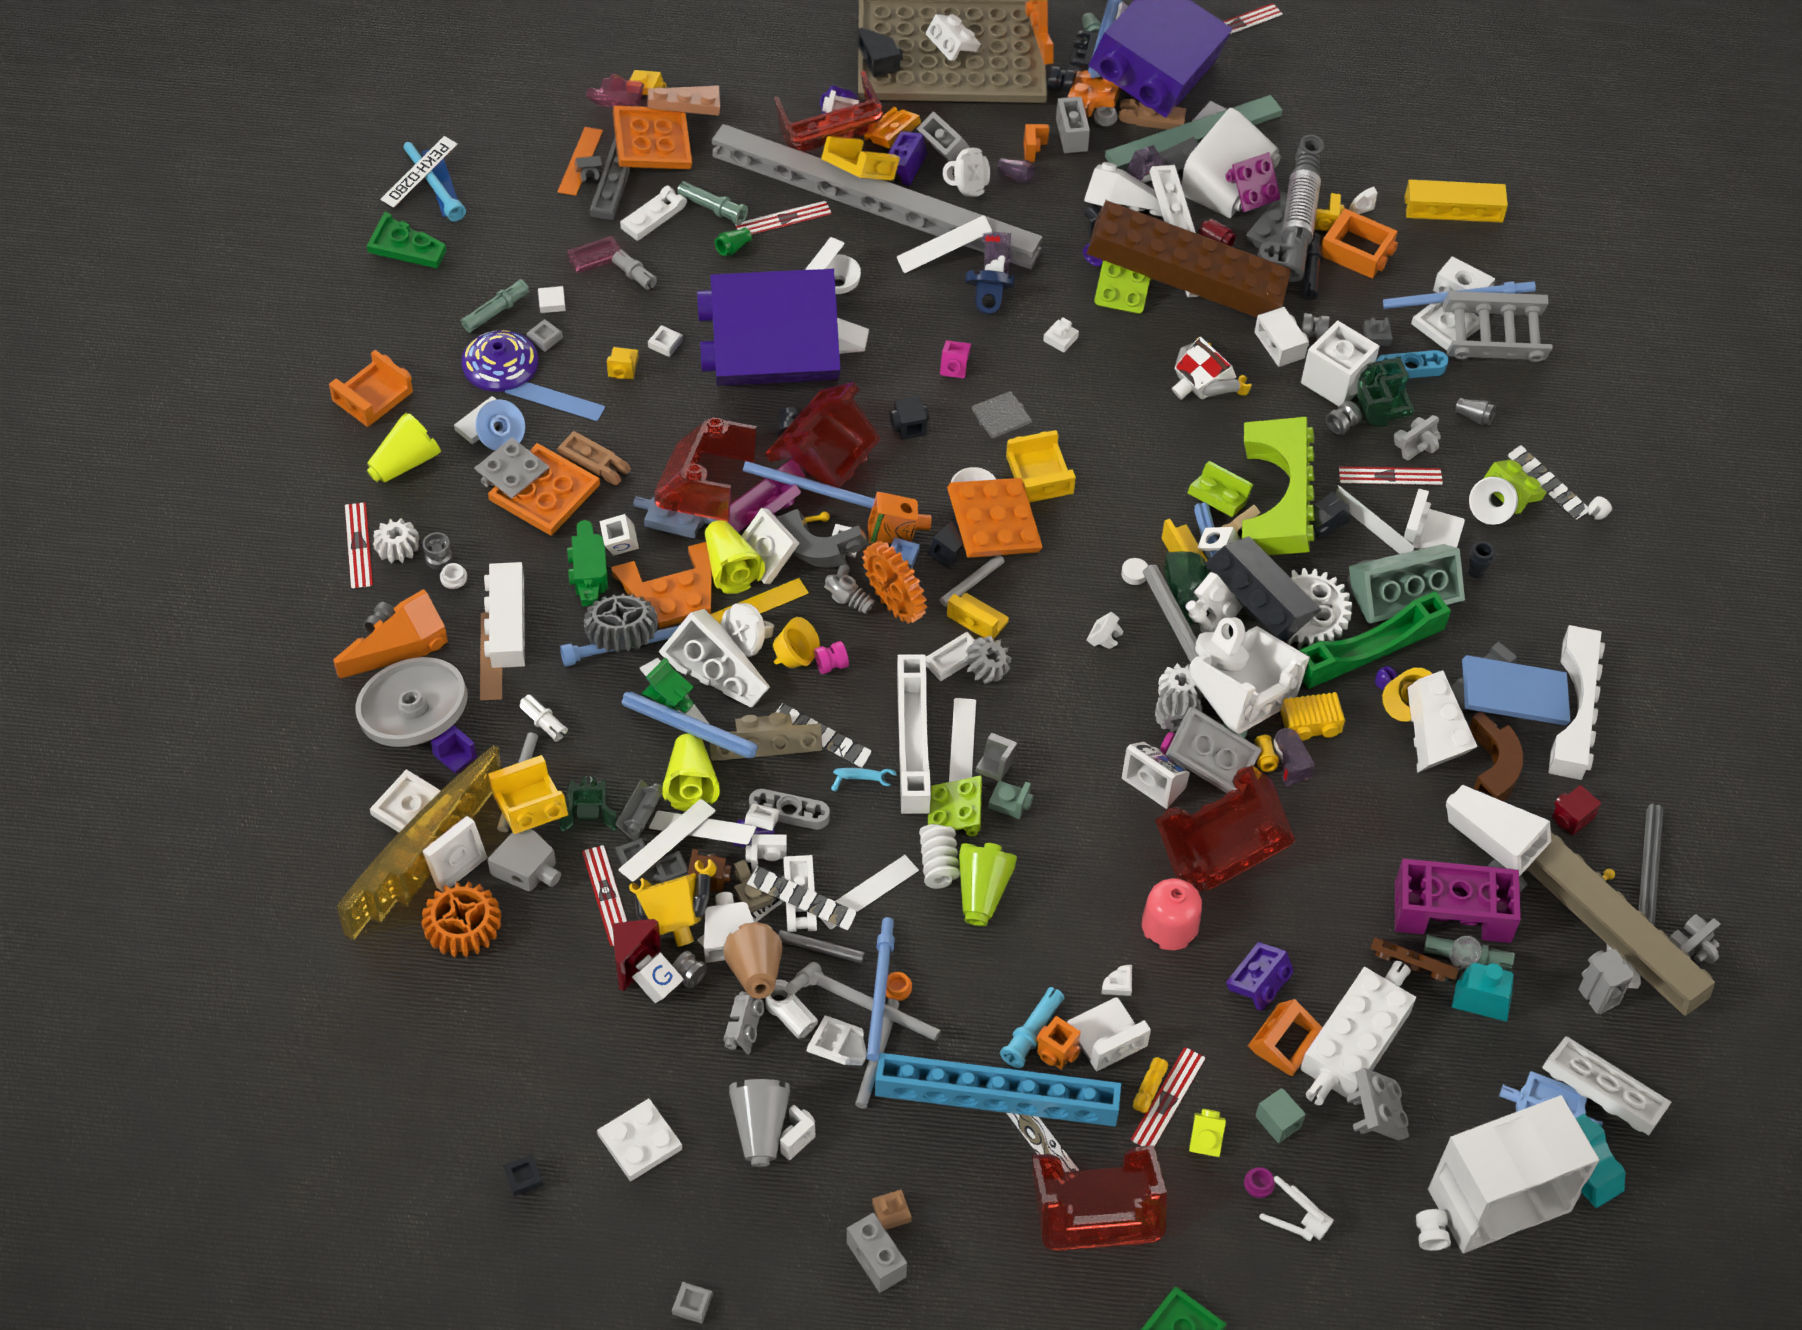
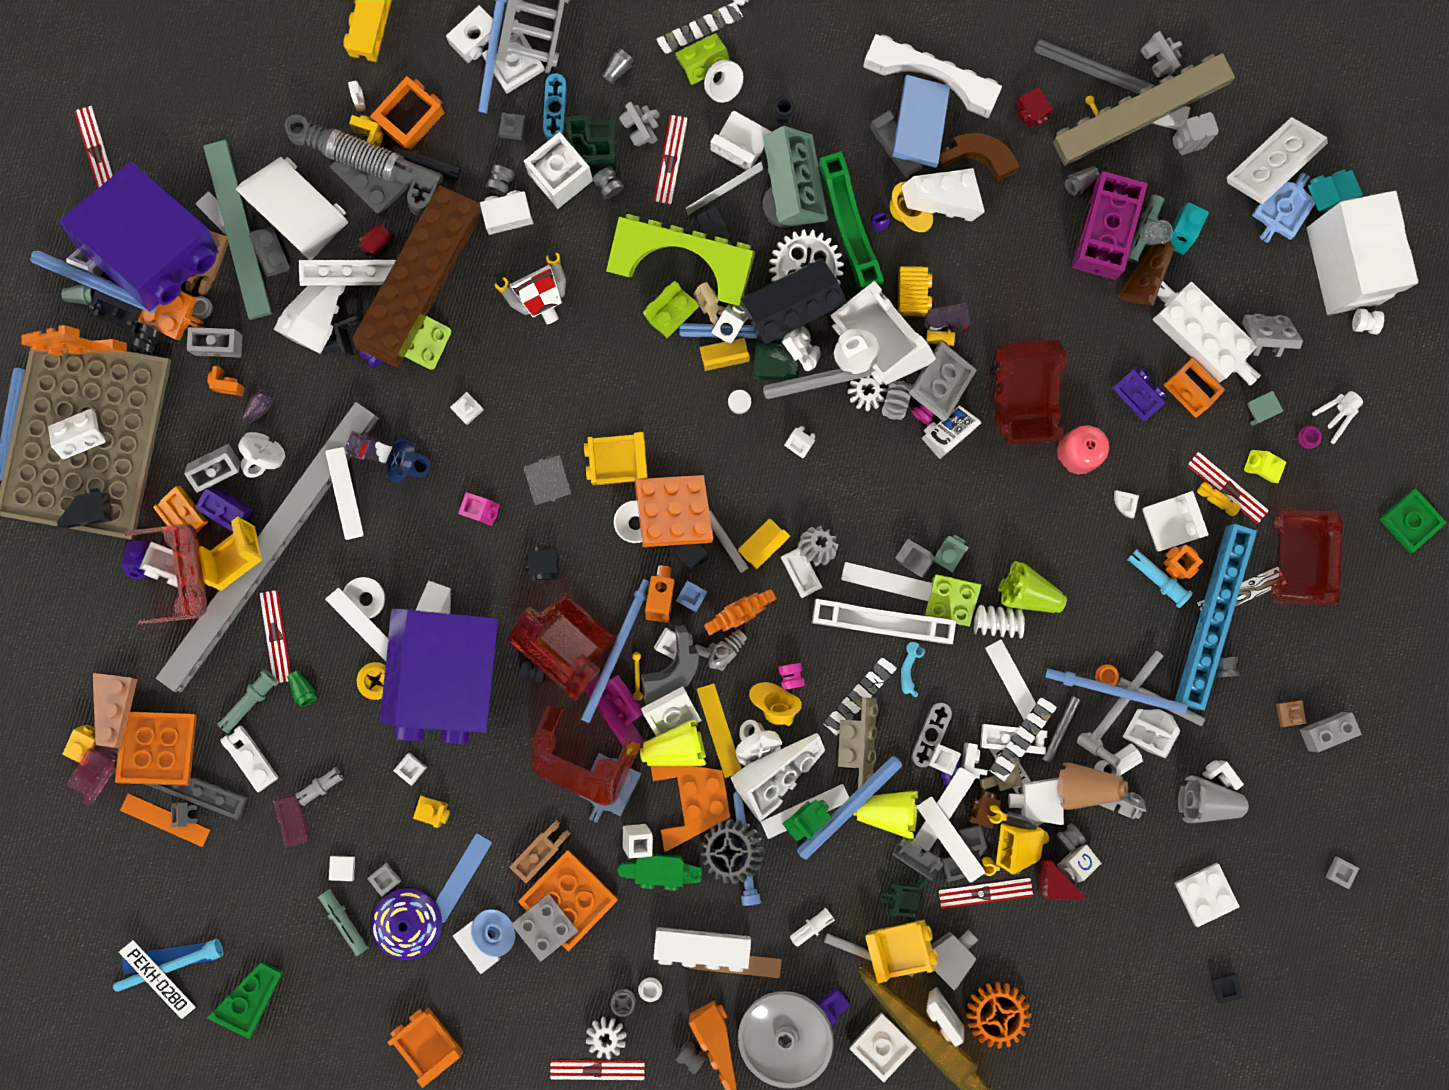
camera: 80 degrees left, 30 degrees up
(402, 450) = (508, 1024): neon yellow cone -> none
(936, 1117) = (1227, 667): none -> flat silver wheel
(1142, 163) = (284, 286): clear purple leg -> none
(1255, 181) = (326, 190): magenta hinge -> none
(1499, 828) = (1055, 172): white slope -> none

